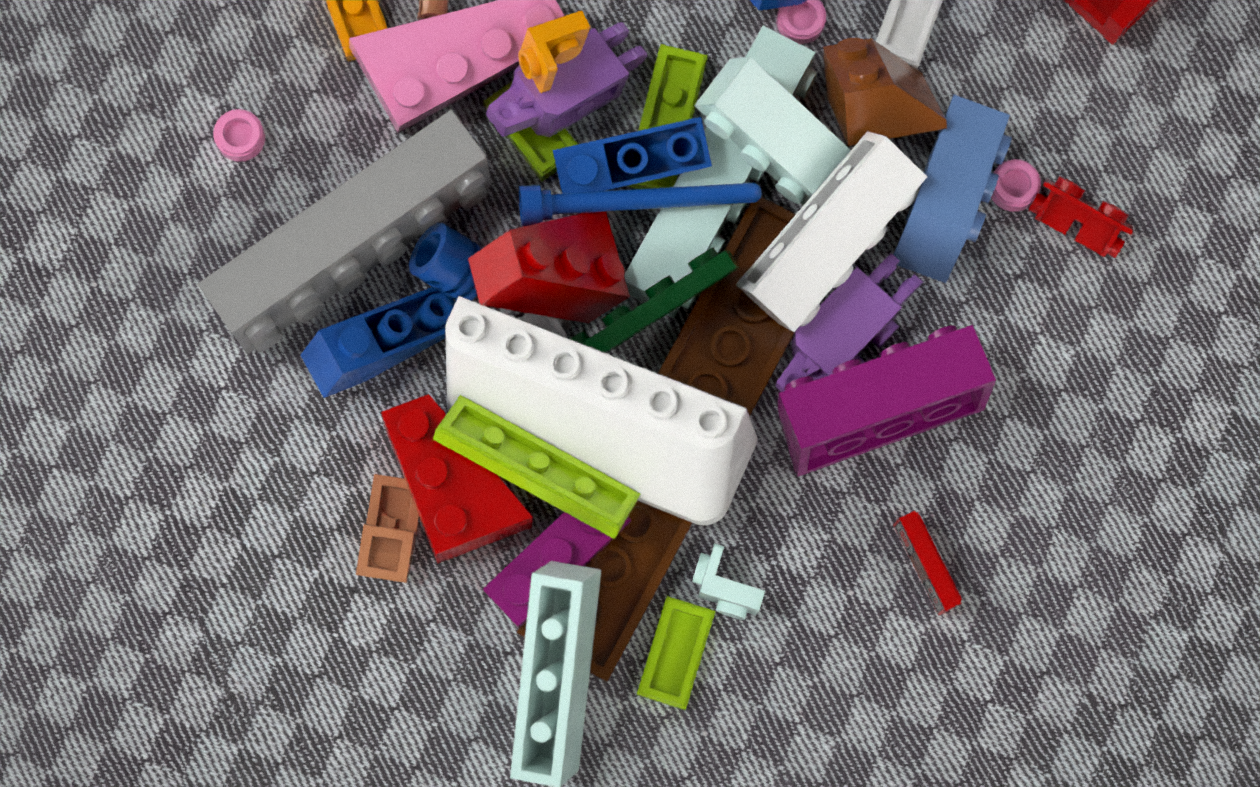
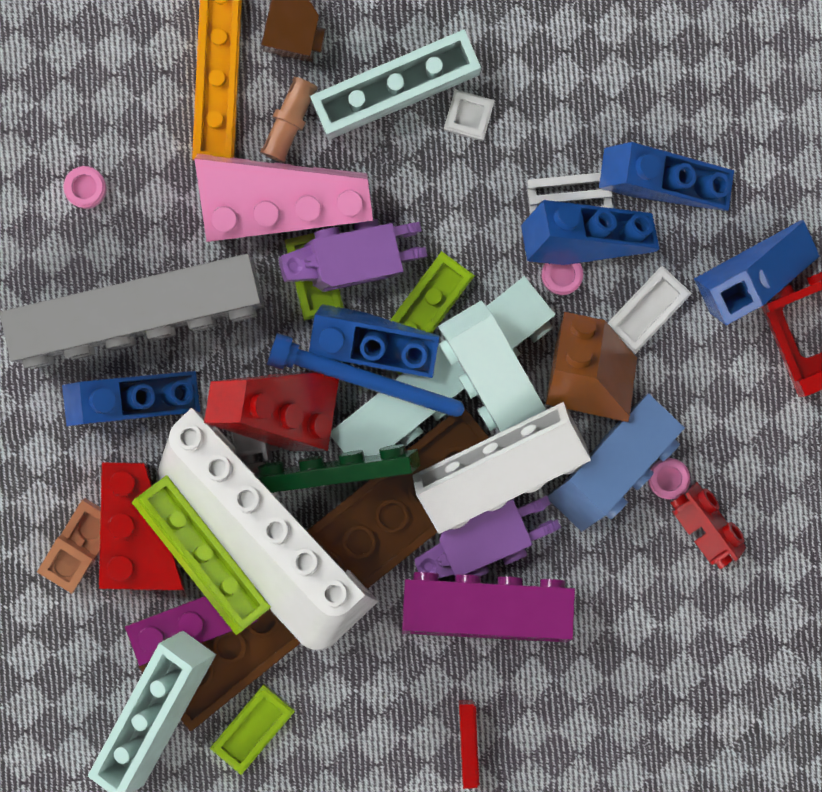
camera: 25 degrees right, 10 degrees up
(443, 261) = (202, 360): blue piece -> none
(552, 45) = (354, 229): light orange bracket -> none
(732, 597) = (310, 707): light aqua bracket -> none

